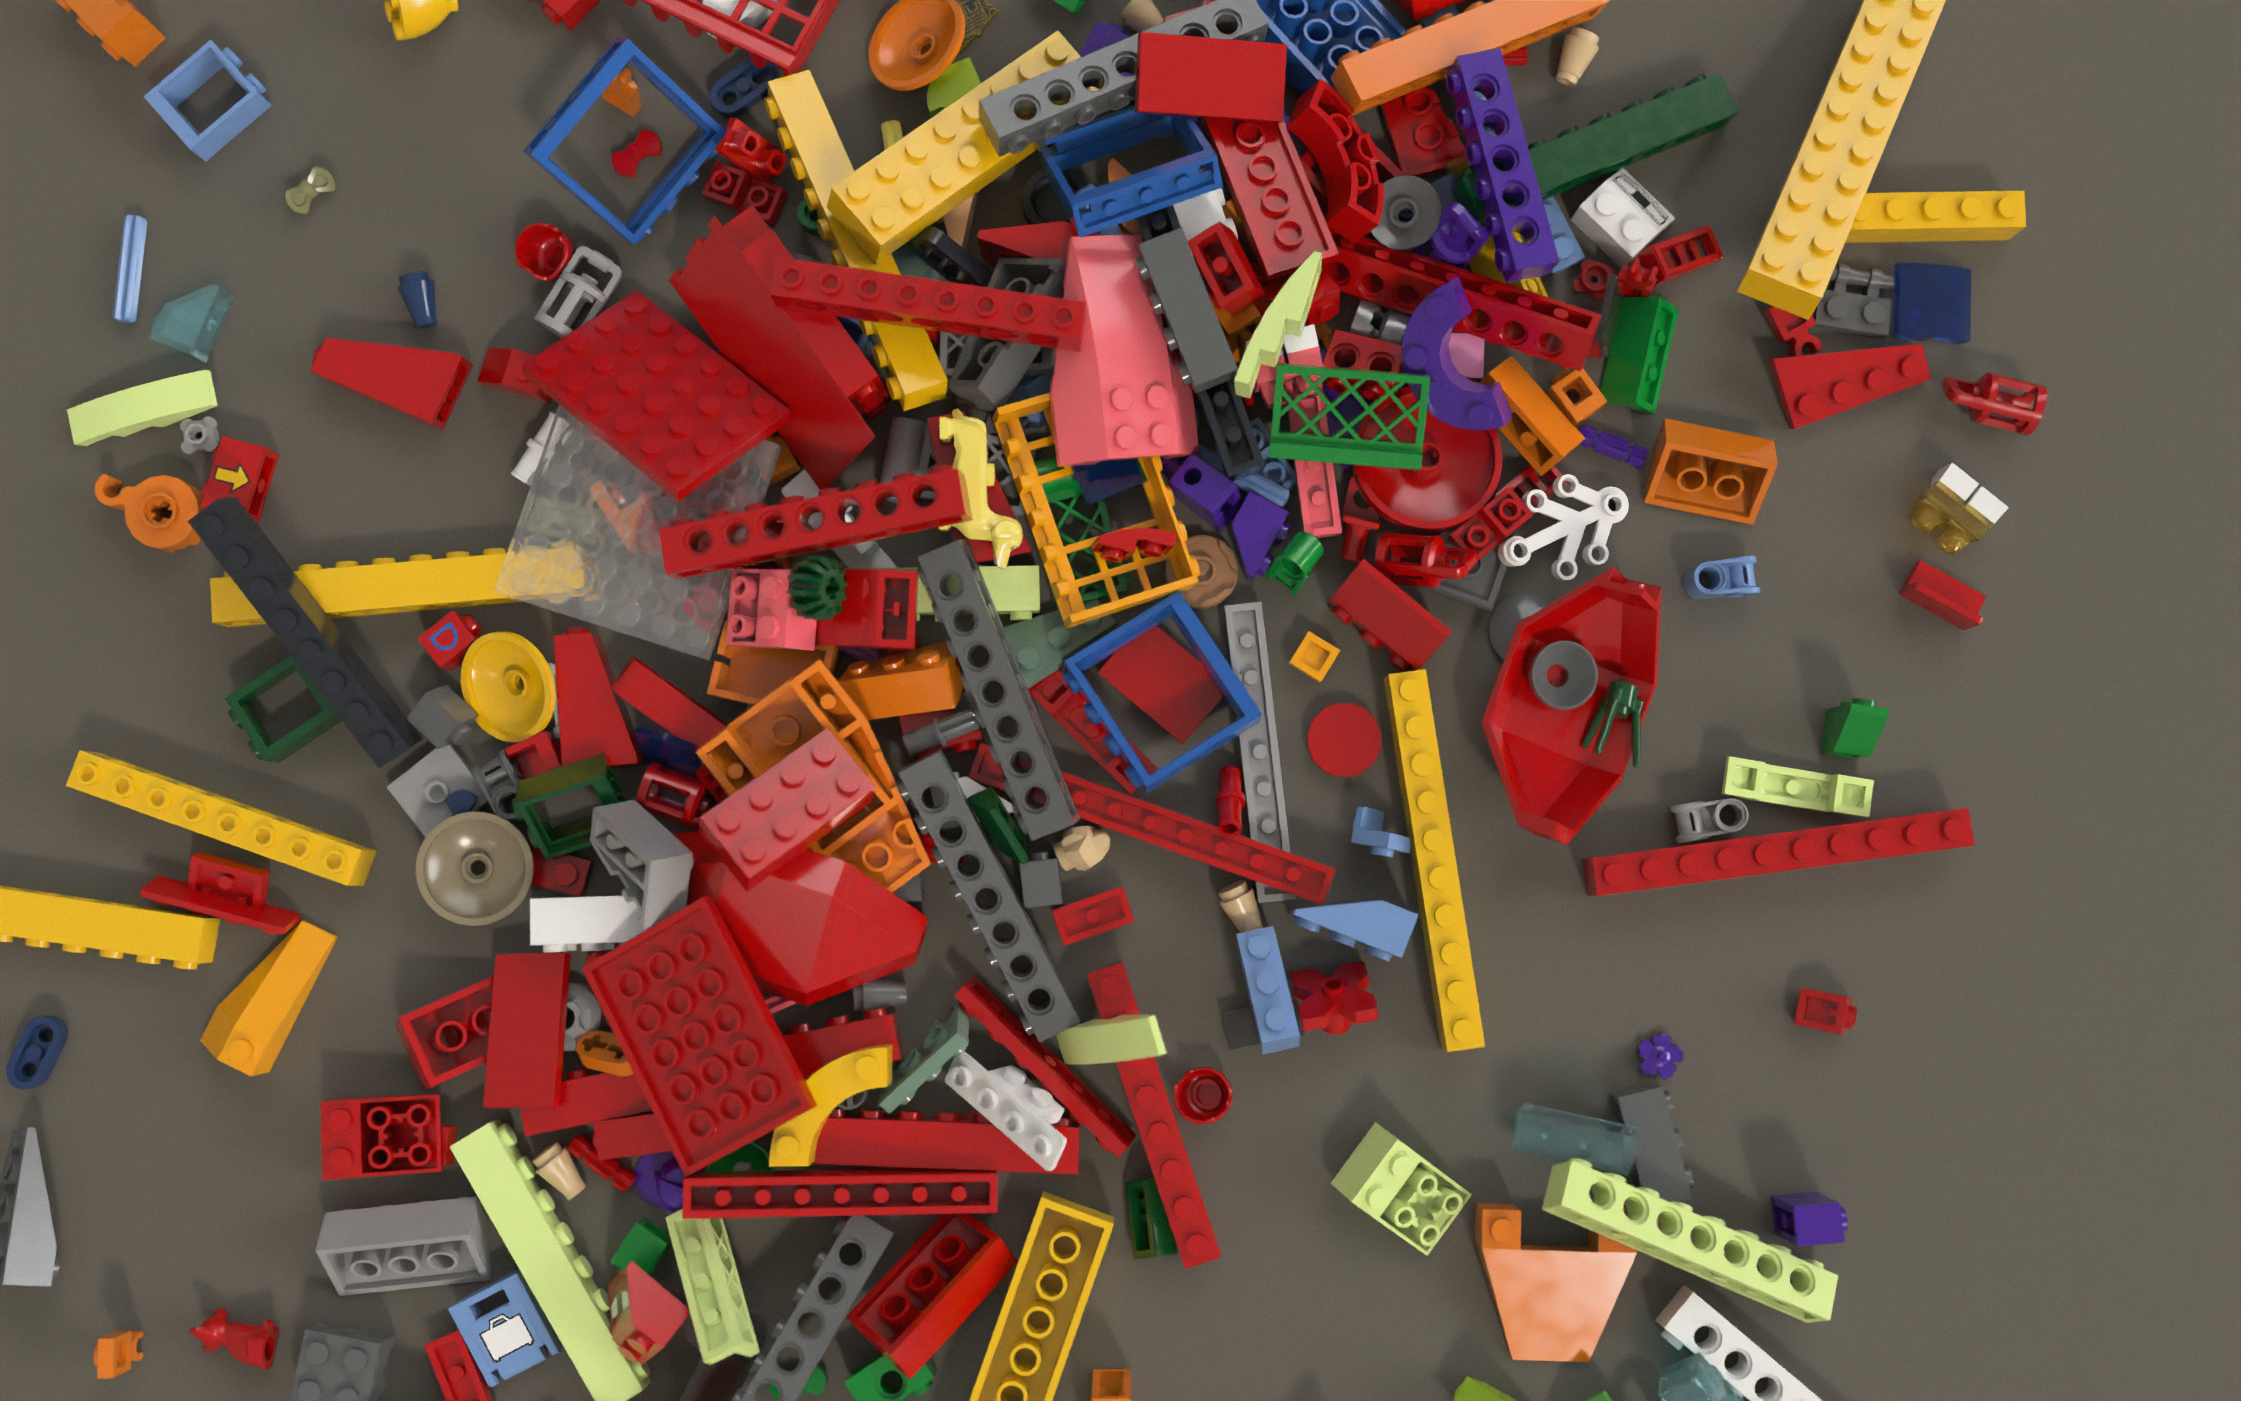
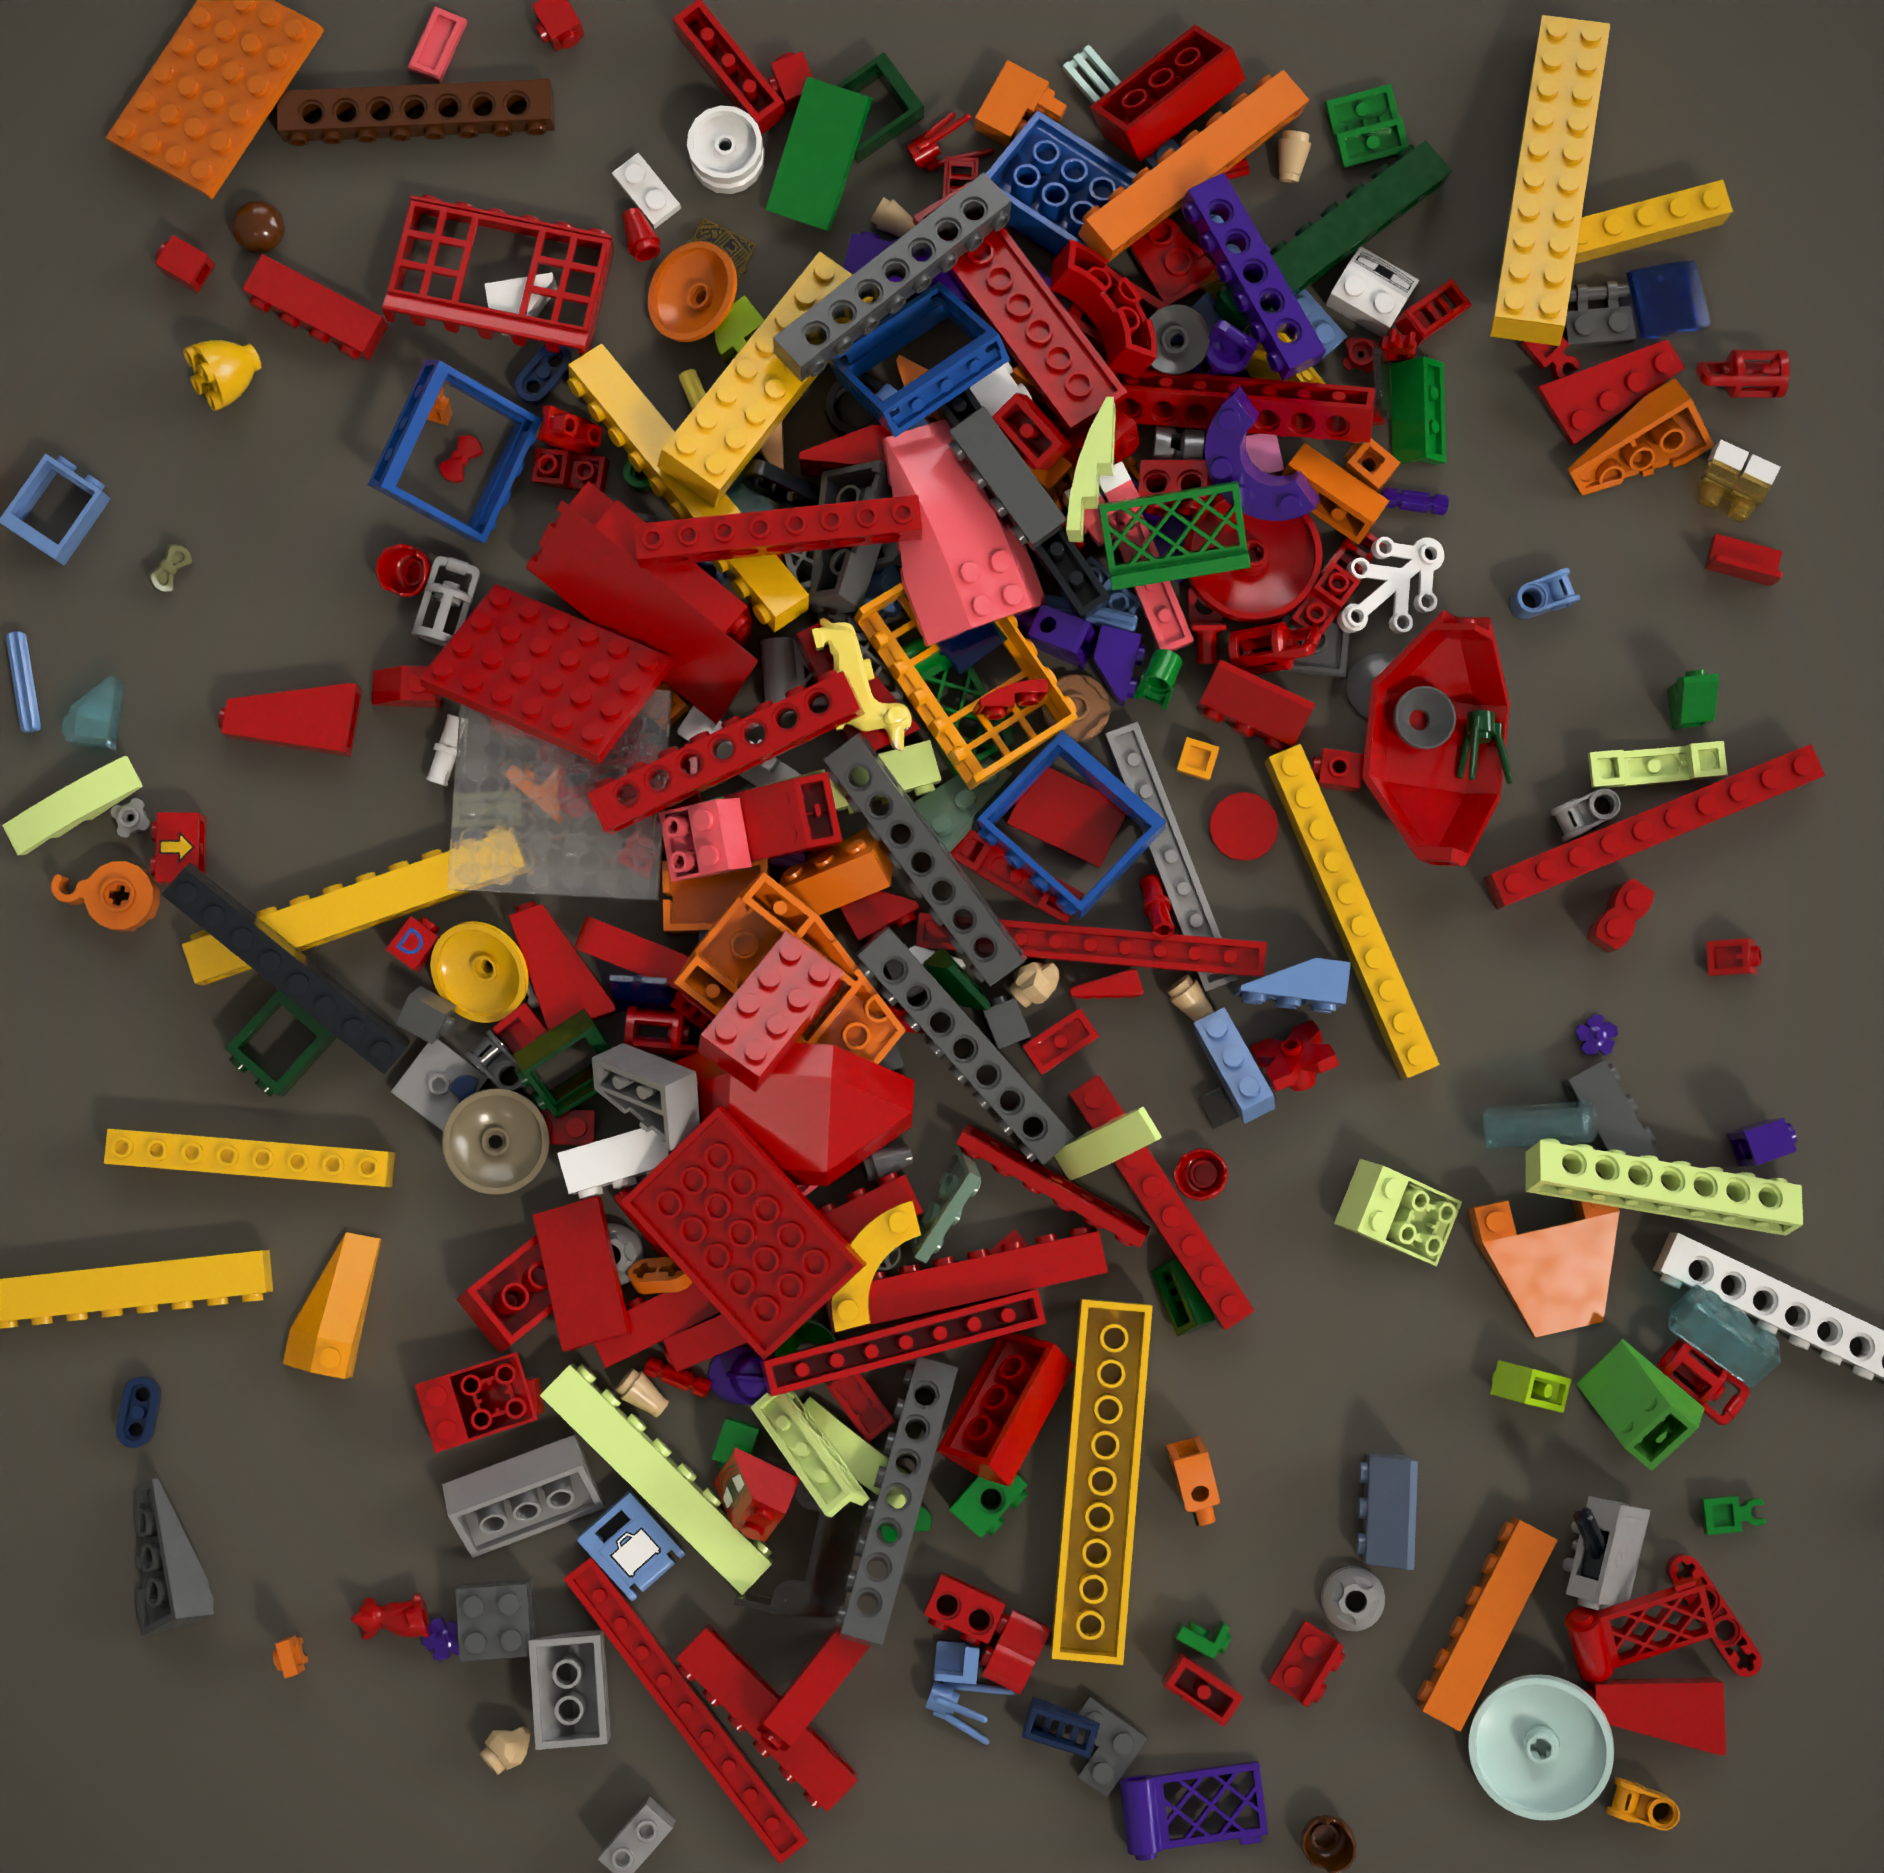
camera: 20 degrees left, 0 degrees up
(224, 891) = (270, 1221): red bracket -> none
(282, 1372) = (442, 1638): none -> dark purple plant
(419, 298) = (298, 640): dark blue cone -> none
(762, 1291) = (856, 1452): none -> yellowish green slope
(785, 1247) = (861, 1405): none -> red plate
(817, 587) = (743, 809): dark green gear -> none
(940, 731) = (882, 910): dark grey axle -> none
(1012, 1105) = (1033, 1226): white bracket -> none
(1169, 873) = (1119, 985): none -> red slope
(1210, 77) = (972, 263): red tile -> none
(1368, 832) = (1288, 904): medium blue bracket -> none
(1459, 706) = (1338, 770): none -> red brick
(1660, 44) = (1366, 125): none -> green slope
(1710, 471) = (1508, 501): orange slope -> none
(1723, 929) = (1616, 925): none -> red brick
(1882, 439) = (1653, 434): none -> orange wedge

